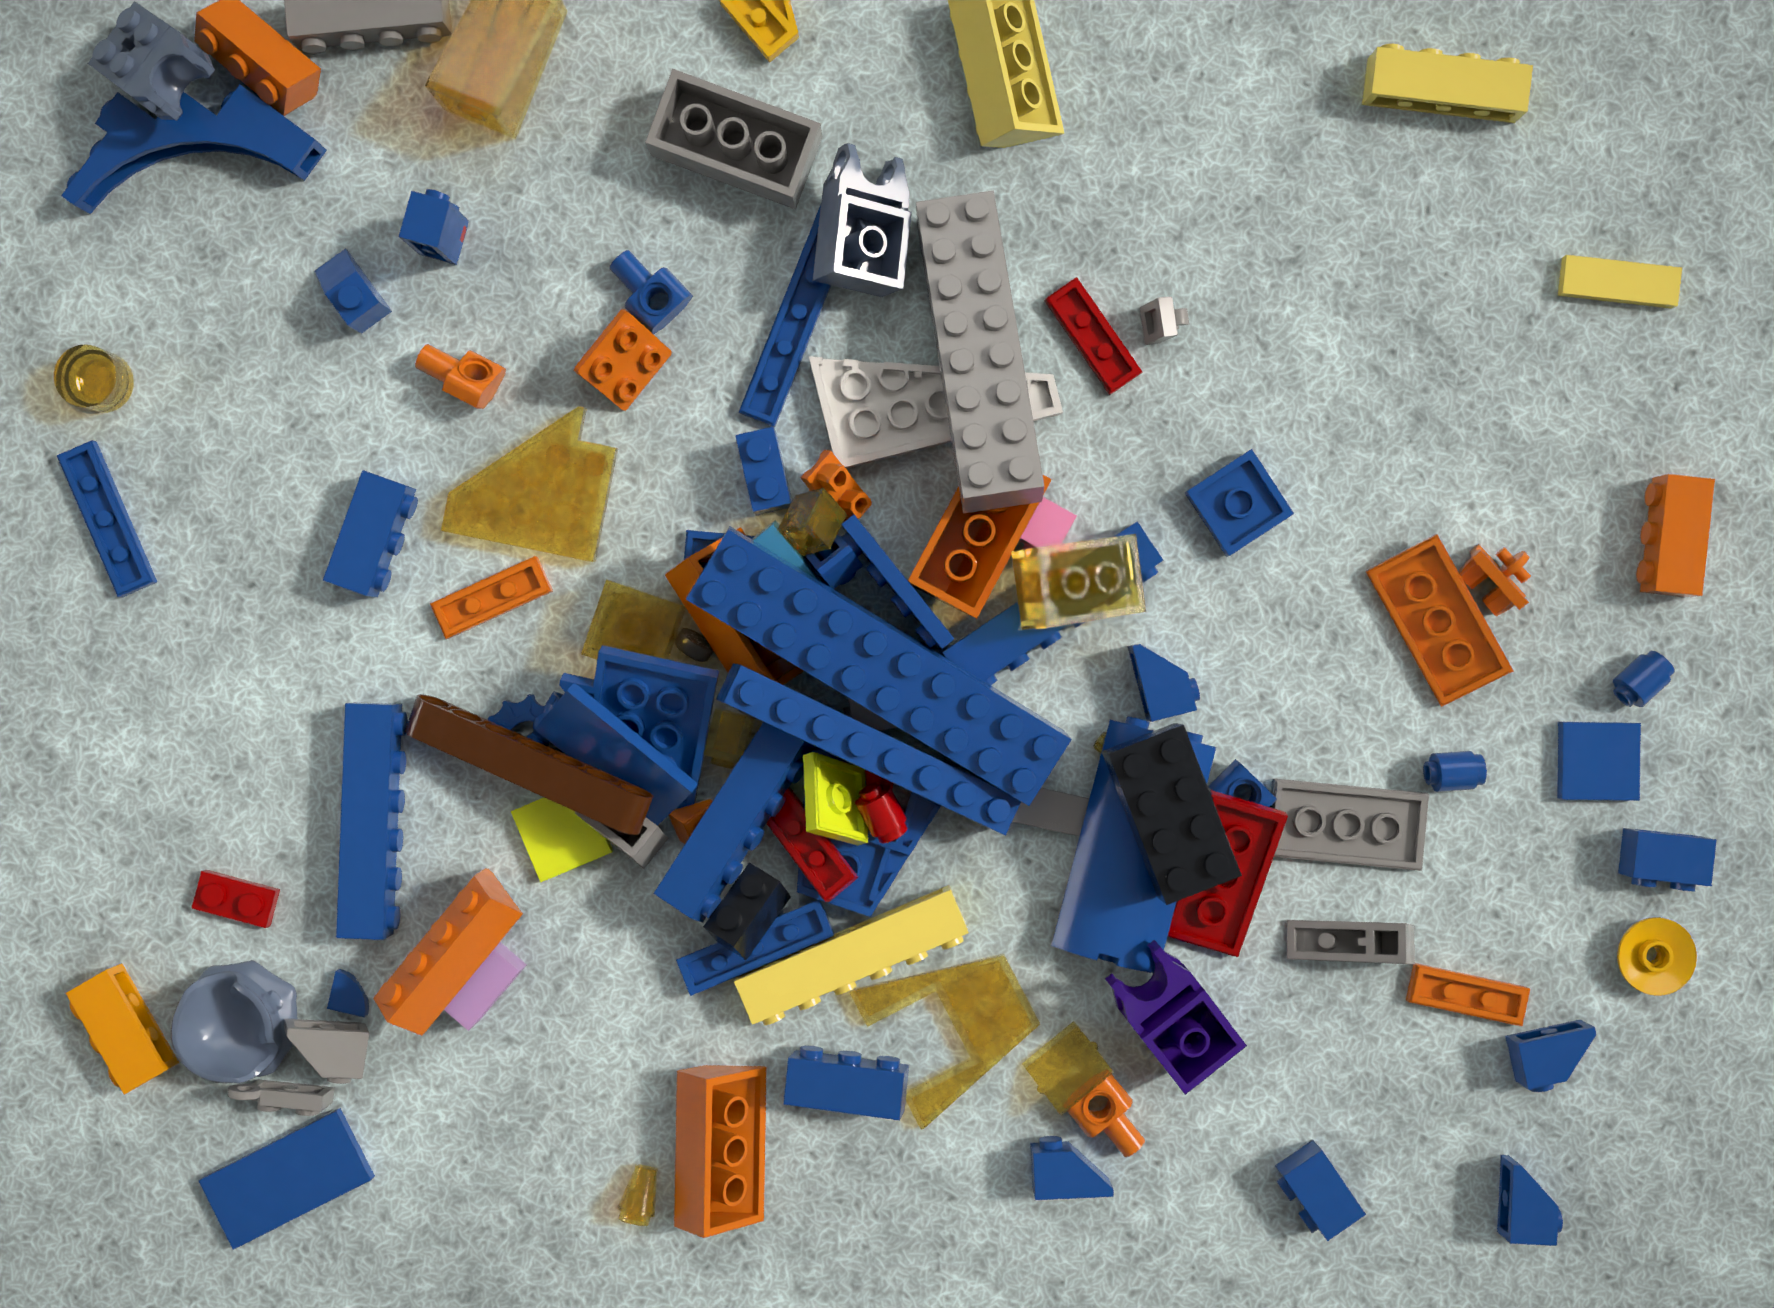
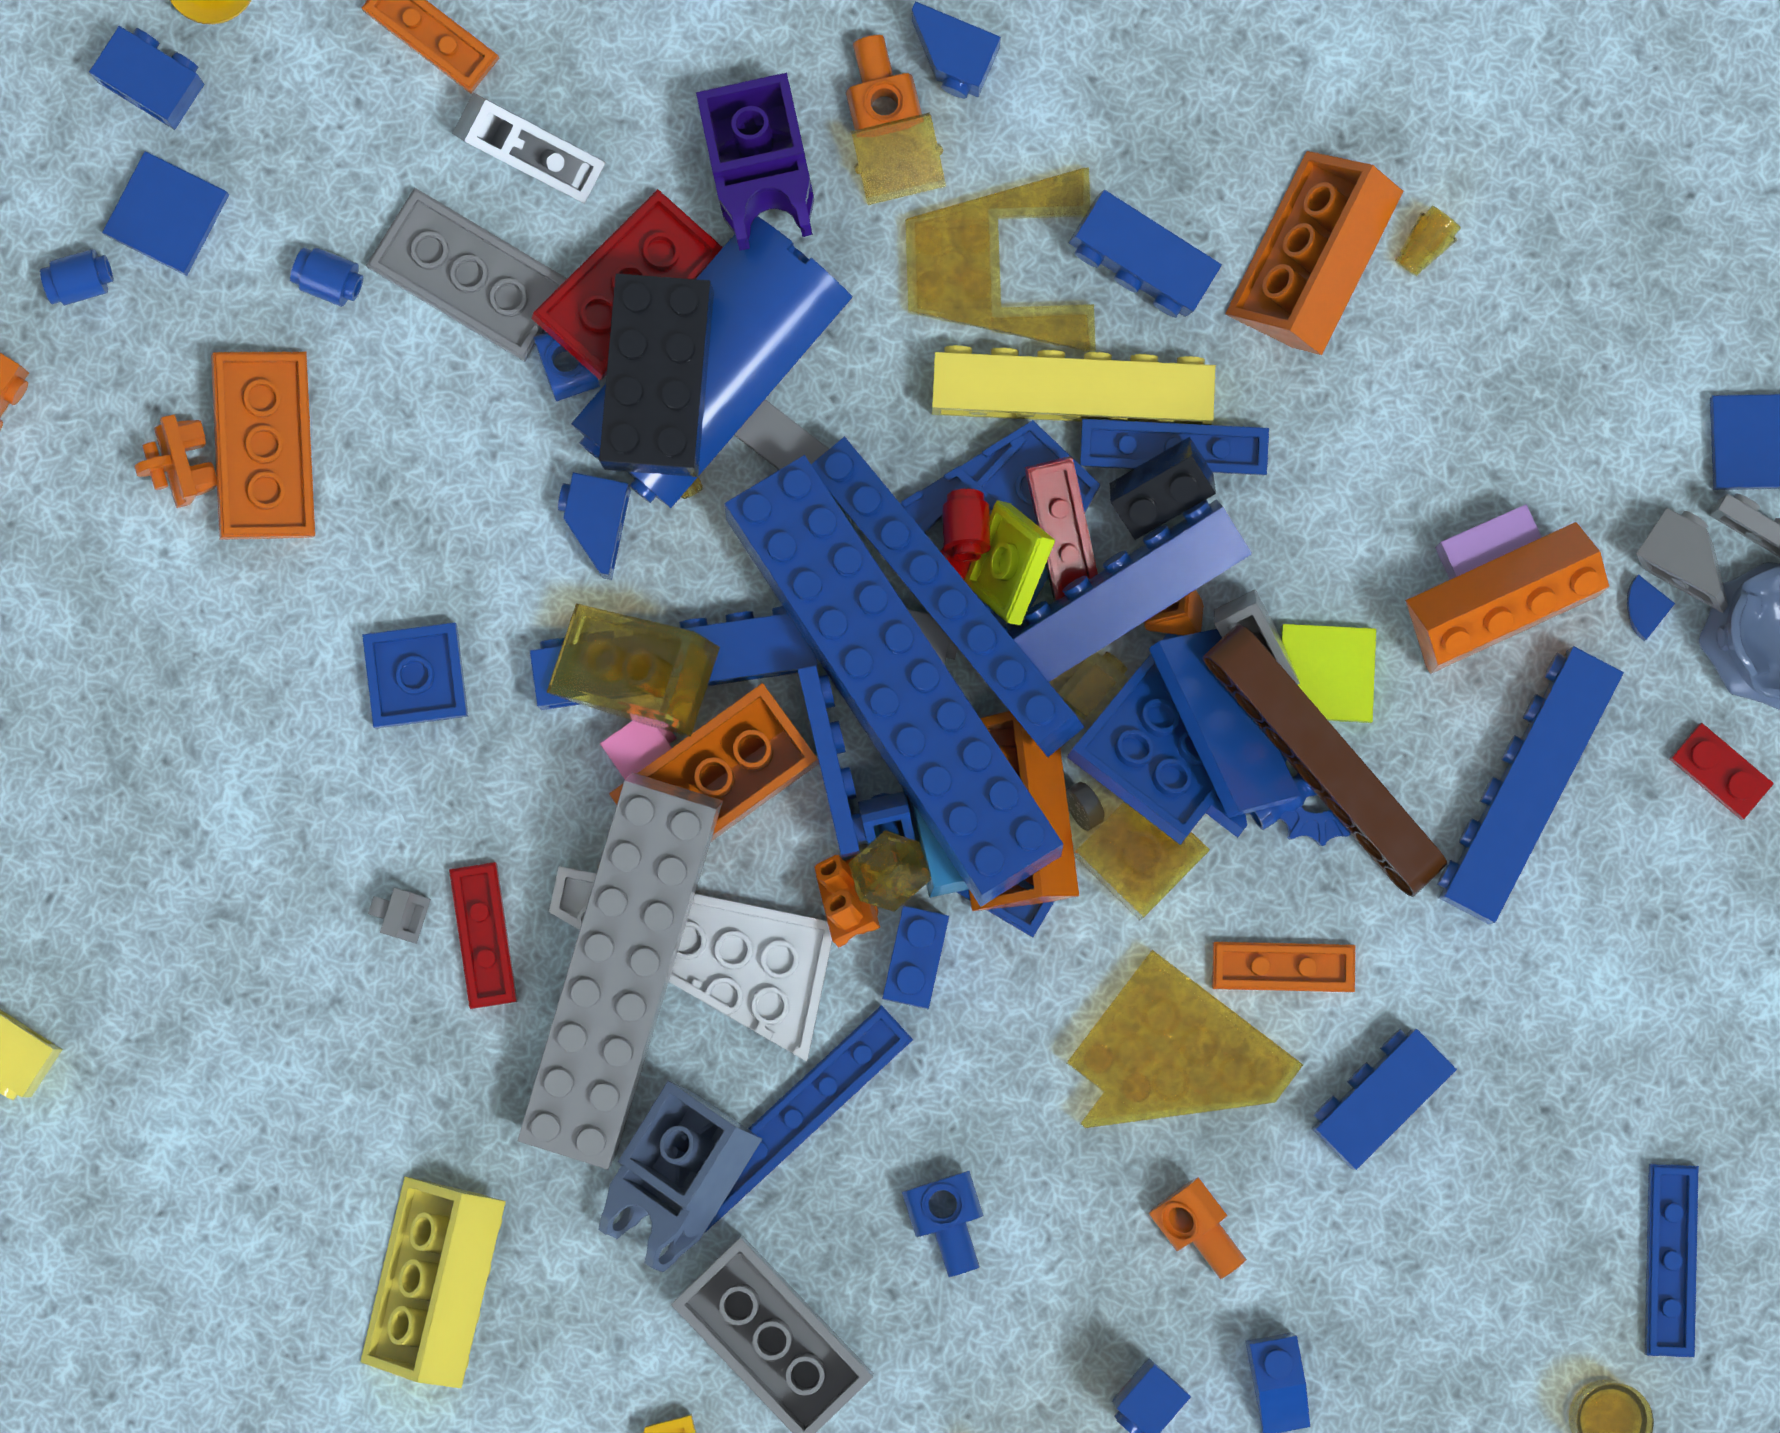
camera: 155 degrees left, 5 degrees down
(623, 360) = (1014, 1158): orange bracket -> none

